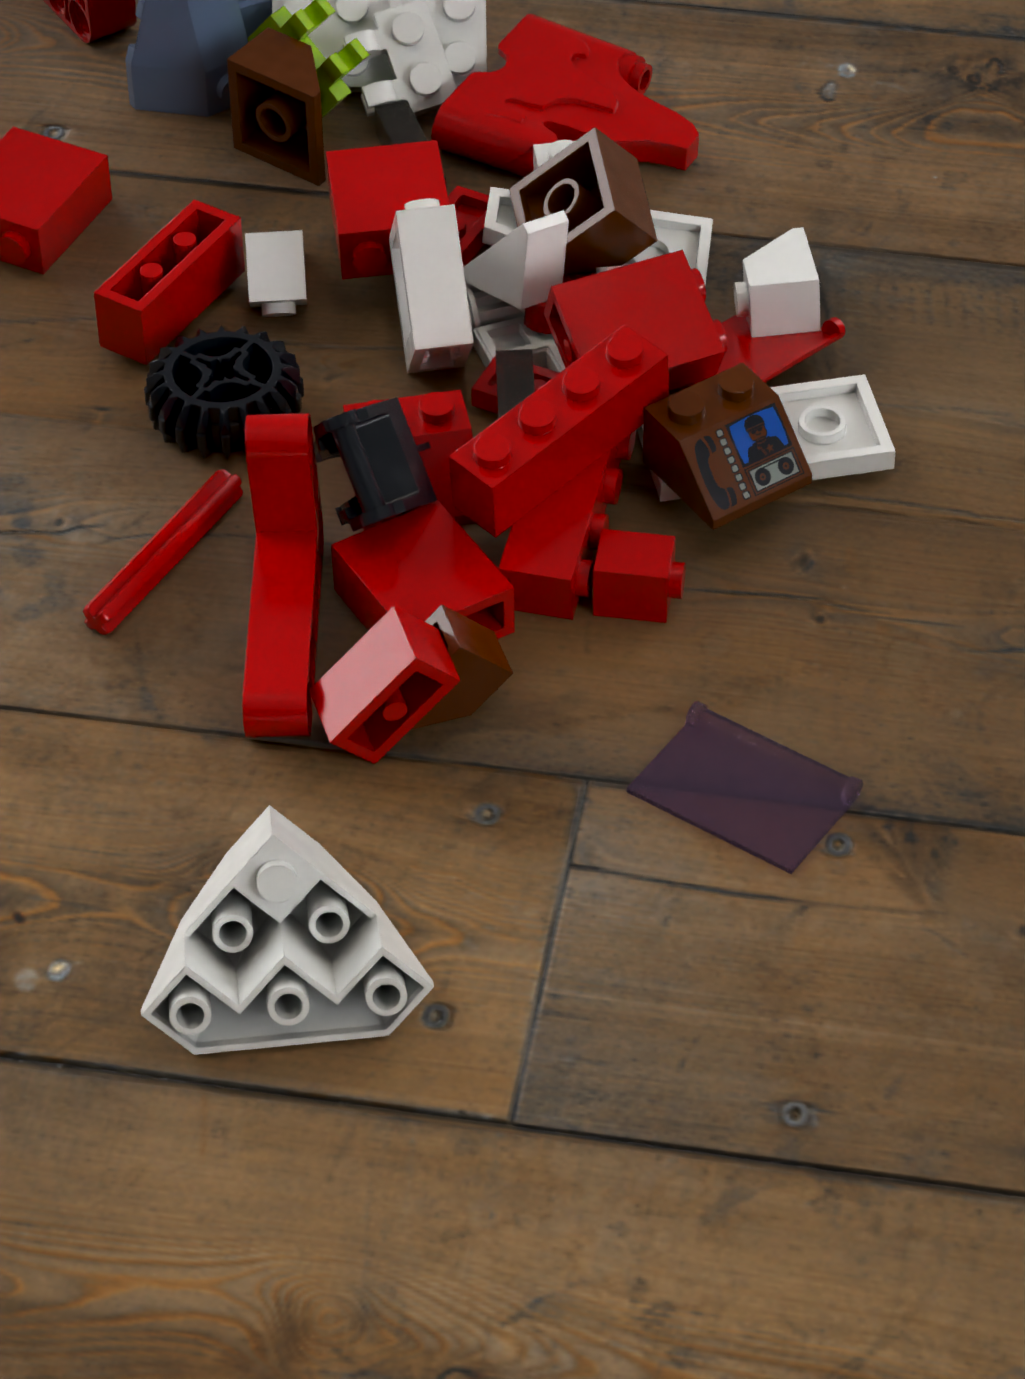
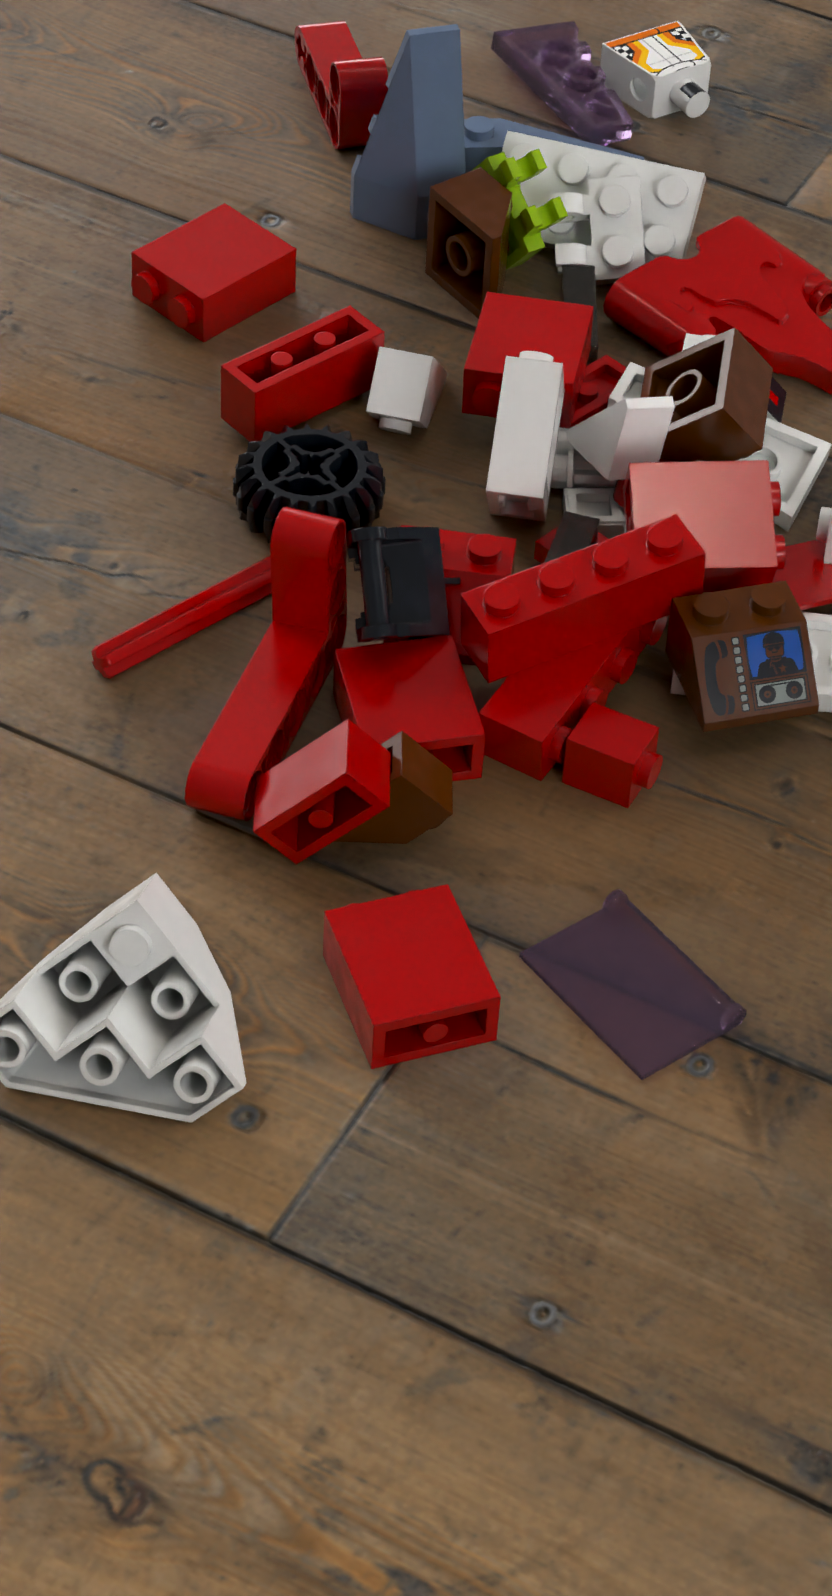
camera: 15 degrees right, 0 degrees up
(539, 837) = (410, 976): none -> red brick

